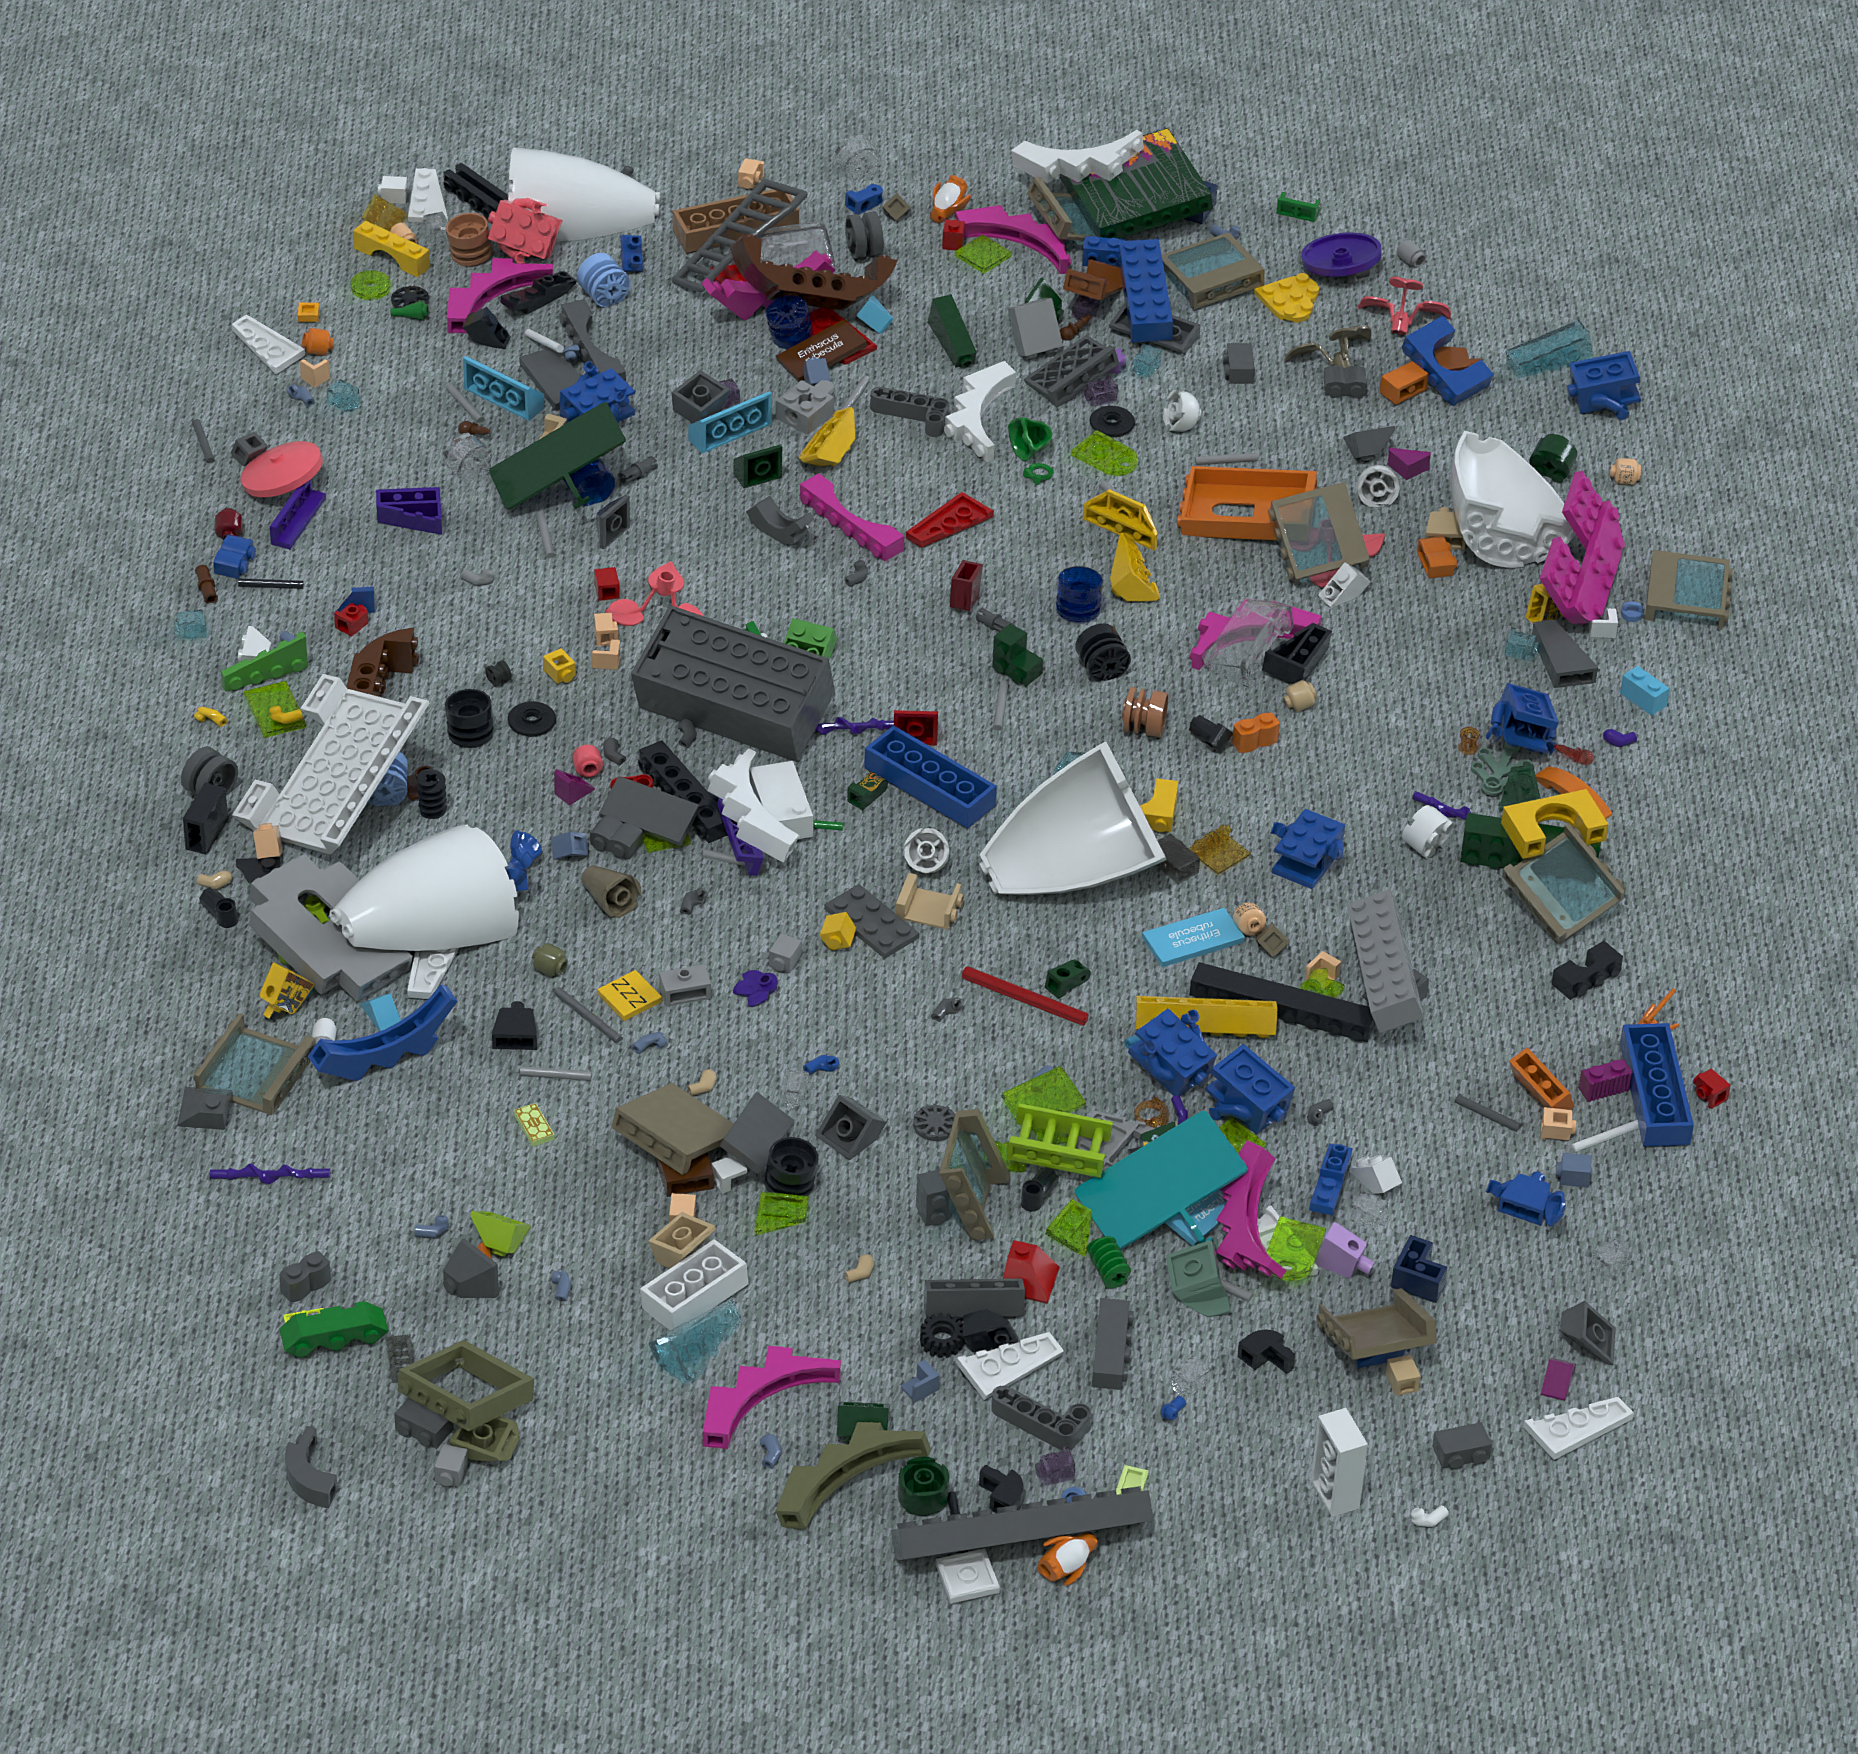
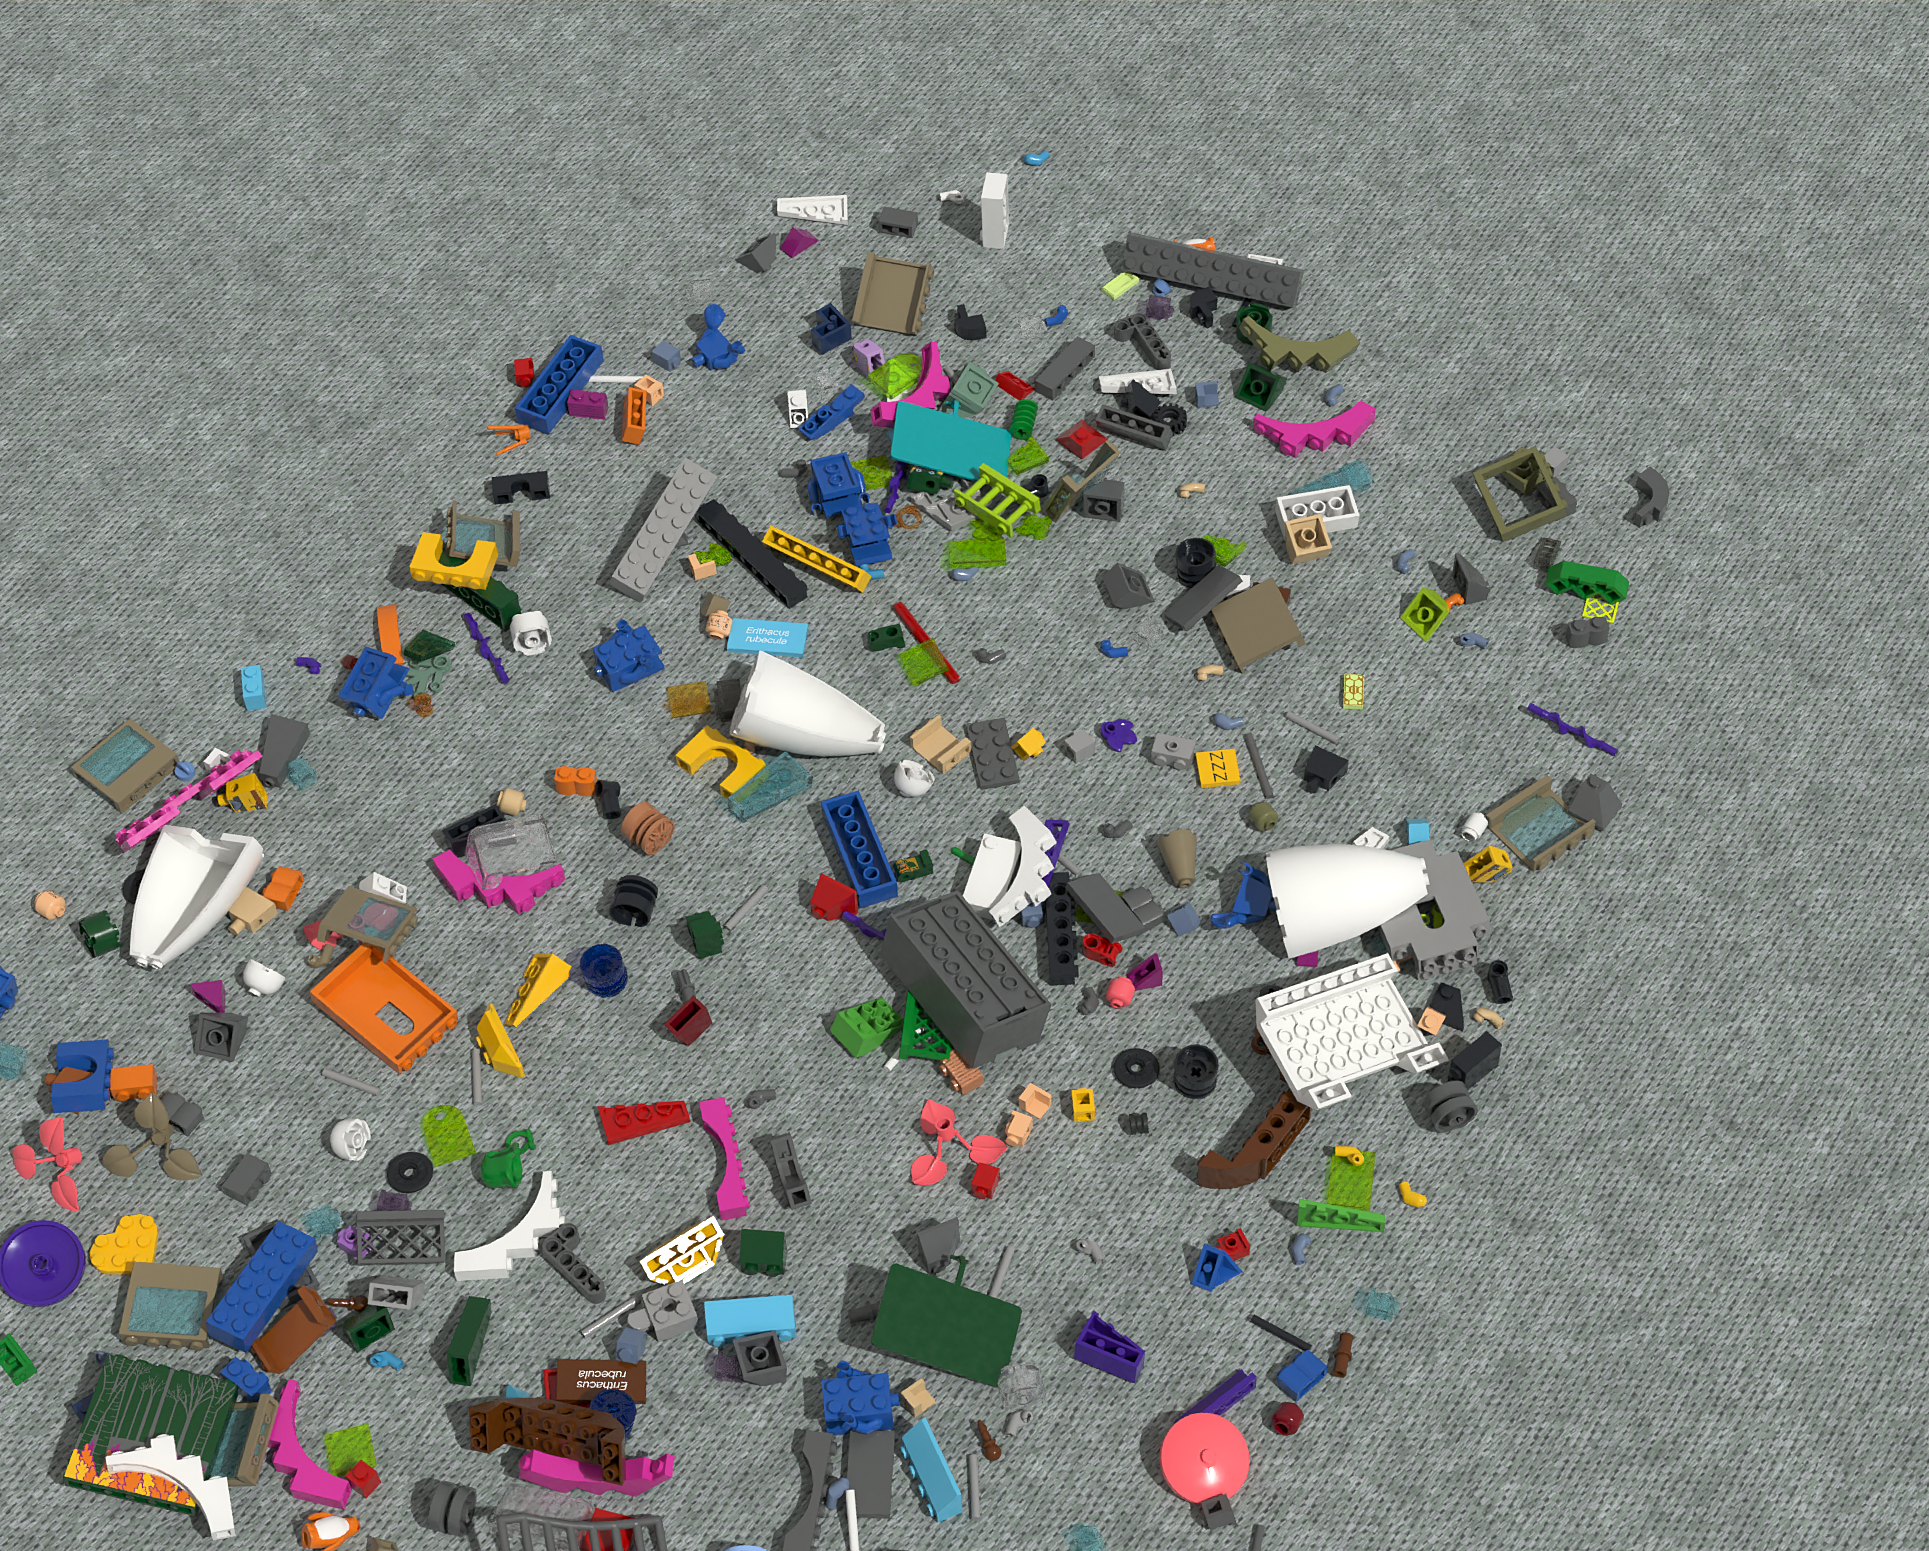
camera: 145 degrees left, 10 degrees up
(252, 644) = (1338, 1244): white slope -> none
(412, 1034) = (1437, 786): blue arch -> none
(682, 1203) = (1289, 573): light nougat brick -> none
(934, 1122) = (1063, 572): dark grey wheel -> none
(1003, 310) = (385, 1359): none -> dark azure arm
(1010, 969) = (923, 662): none -> clear neon green tile
(1157, 1309) = (1013, 385): none -> red slope
(1373, 1610) = (1036, 160): none -> dark azure arm
(1488, 1113) = (682, 424): dark grey bar -> none

